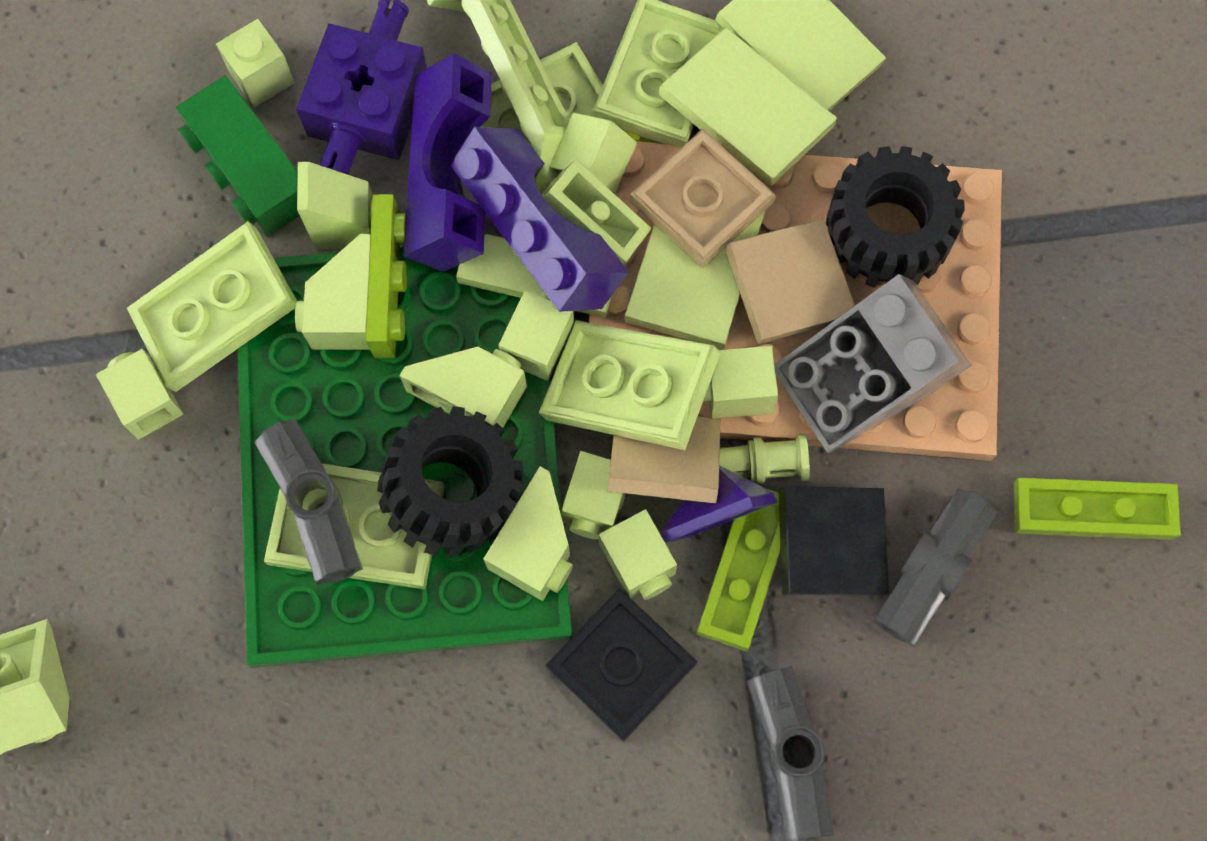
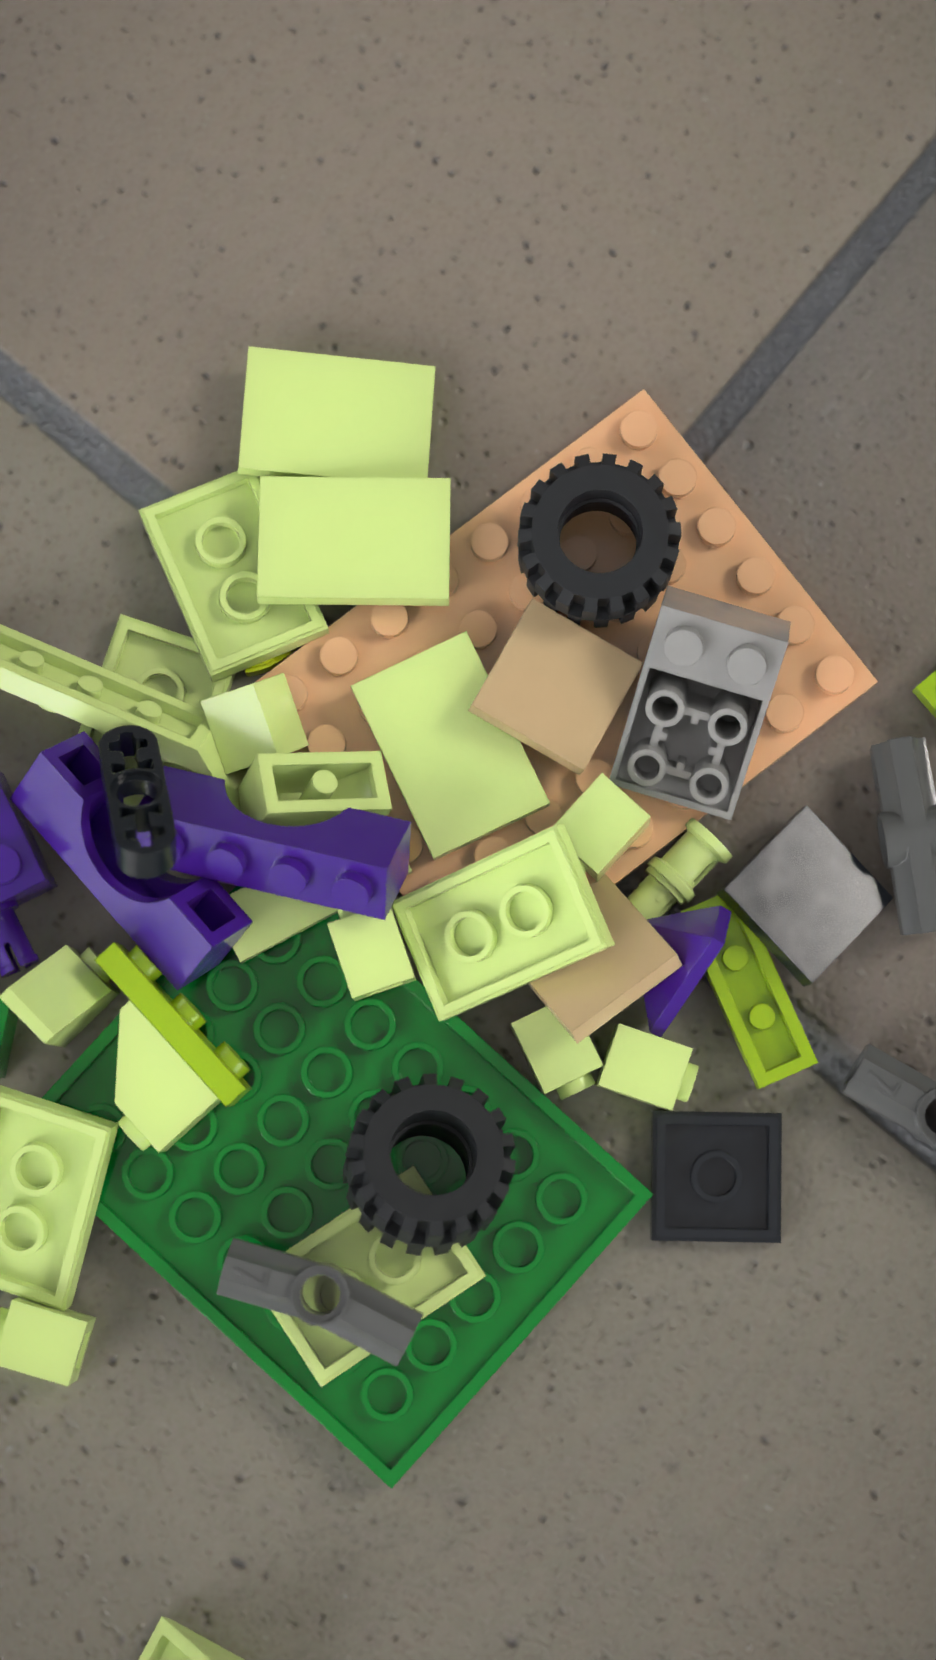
camera: 45 degrees left, 10 degrees up
(470, 381) = (356, 1054): yellowish green slope -> none
(479, 118) = (129, 820): none -> black beam
(533, 542) = (552, 1146): yellowish green slope -> none
(702, 198) = (401, 678): tan tile -> none

